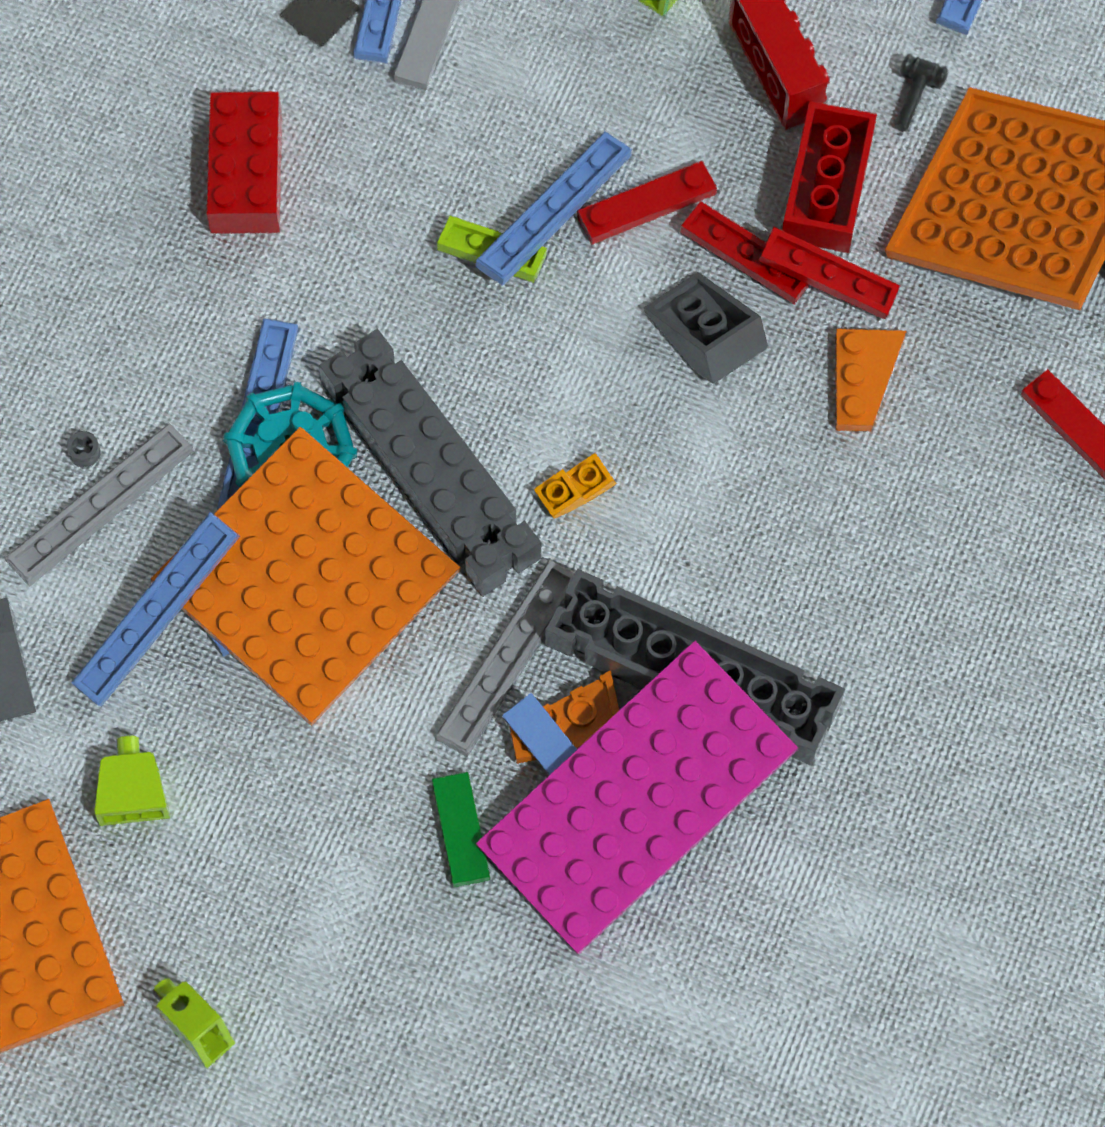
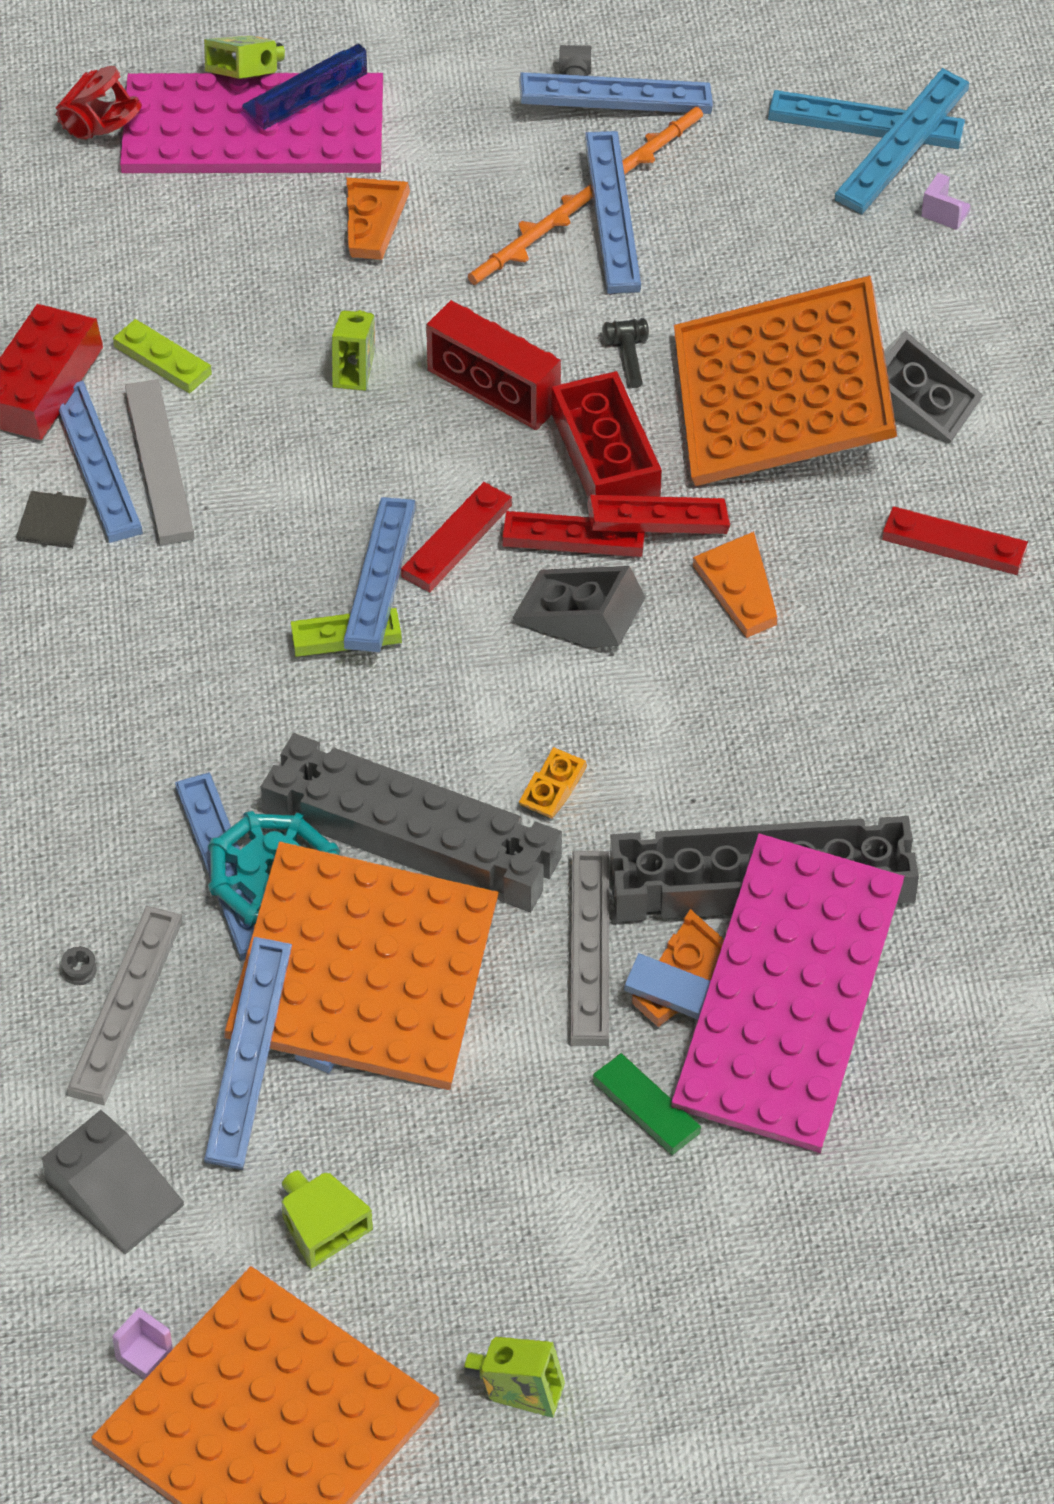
camera: 30 degrees left, 15 degrees down
(244, 162) = (71, 663): red brick -> none

